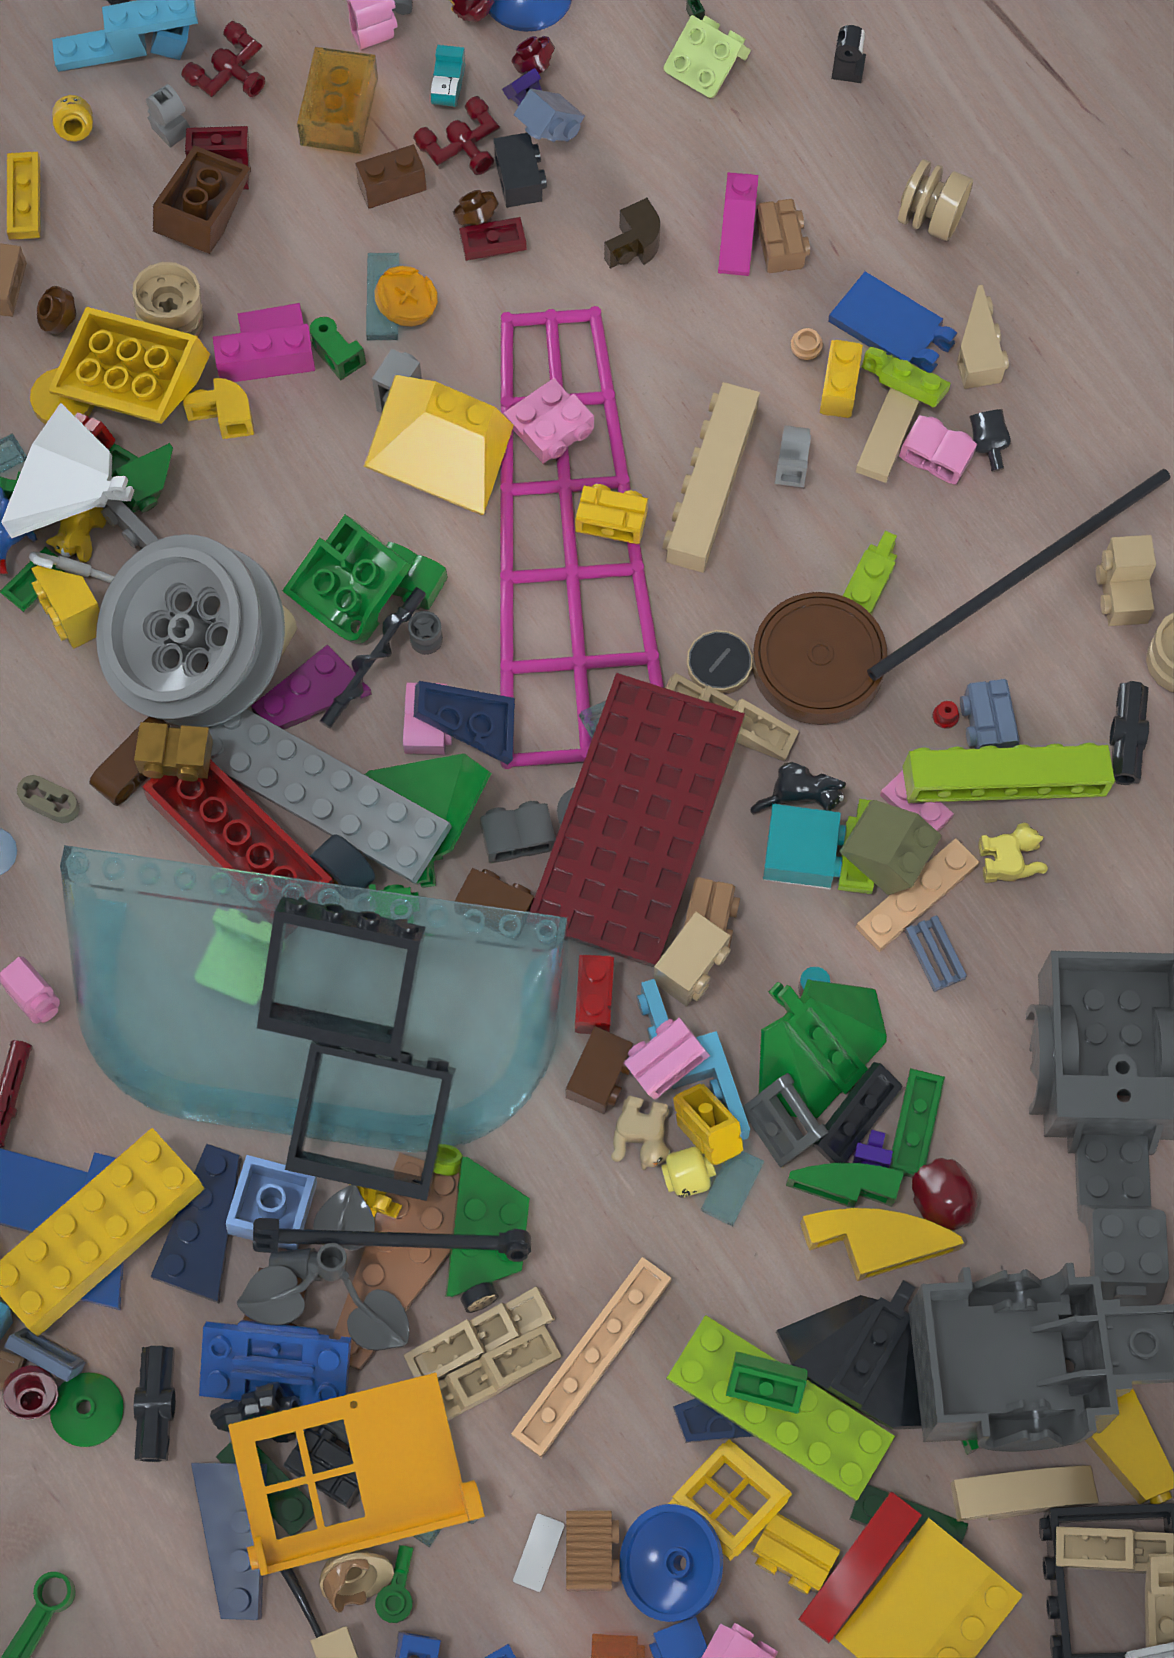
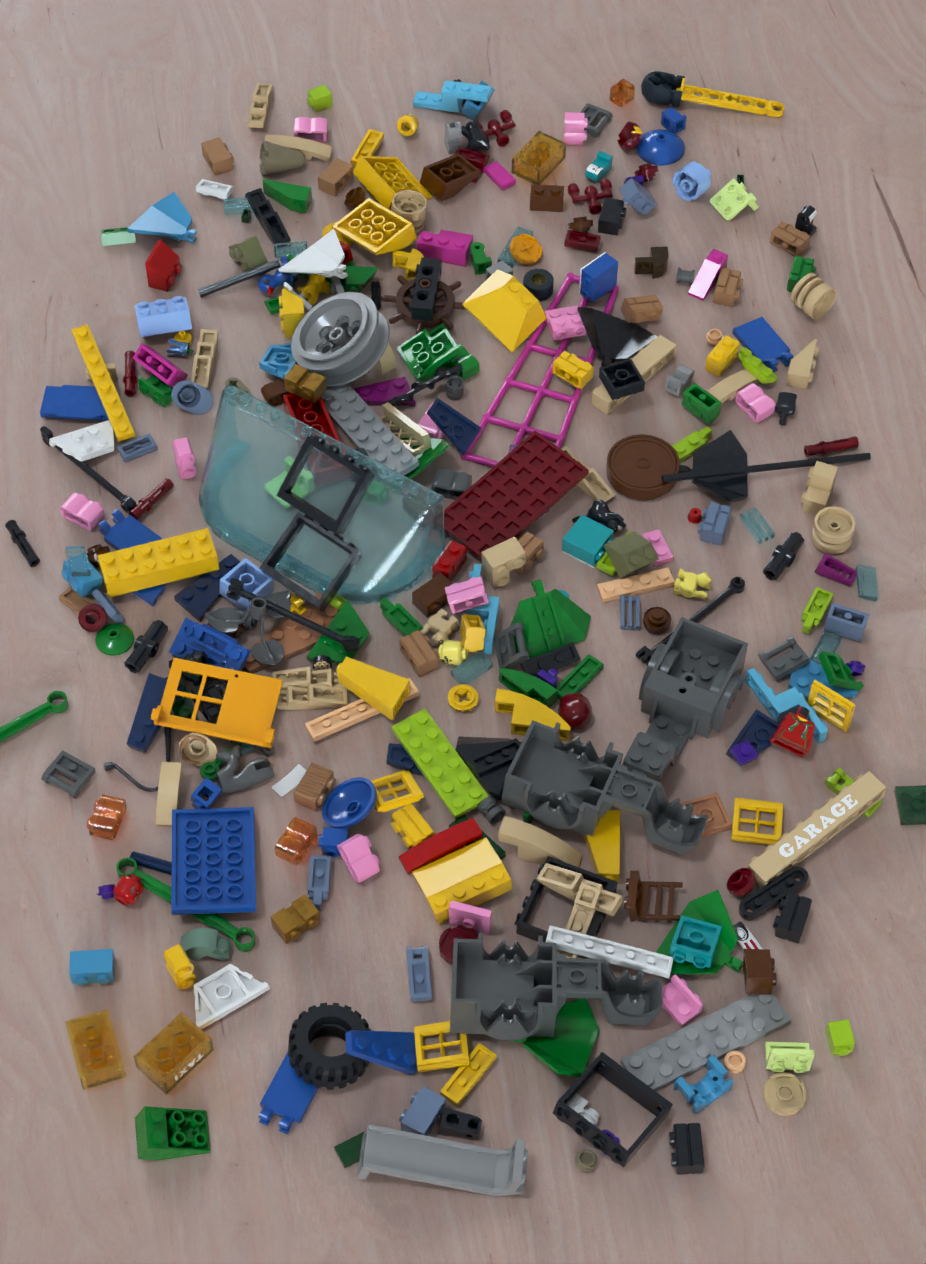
camera: 25 degrees right, 15 degrees down
(93, 710) = (278, 360): none -> dark azure wing
(97, 248) = (386, 177): none -> yellow slope
(191, 496) = (376, 293): none -> black axle
(210, 102) = (475, 137): none -> black animal
(282, 455) = (425, 292): none -> brick
(283, 159) = (499, 175): none -> dark pink tile
(393, 756) = (407, 428): none -> tan fence
(439, 1609) = (251, 774): none -> dark grey piece
(463, 360) = (539, 283): none -> black wheel
(566, 1143) = (399, 617): none -> green hinge
(567, 311) = (598, 277): none -> blue piece
(599, 1309) = (375, 686): none -> yellow slope
(622, 46) = (691, 181): none -> light blue brick
(633, 1198) = (419, 653): none -> medium nougat brick
(646, 415) = (612, 336): none -> black panel
(664, 340) = (642, 308): none -> medium nougat brick
(700, 241) = (685, 276): none -> dark grey bush
(709, 487) = (621, 379): none -> black brick
(719, 661) = (593, 452): black tile -> none
(761, 1241) = (461, 691): none -> yellow gear
(767, 1382) = (437, 745): green slope -> none
(836, 96) = (790, 239): none -> medium nougat brick
(856, 491) = (701, 403): none -> green brick
(888, 161) = (800, 267): none -> green brick
(899, 1450) = (492, 811): none -> dark grey wheel
(935, 586) = (721, 454): none -> black panel
(988, 950) = (657, 619): none -> reddish brown plate
(1008, 773) = (709, 547): lime brick -> none
(1008, 1019) = (731, 590): none -> black hinge
(1047, 698) = (754, 527): none -> clear light blue tile
(1090, 490) = (832, 446): none -> dark red pin

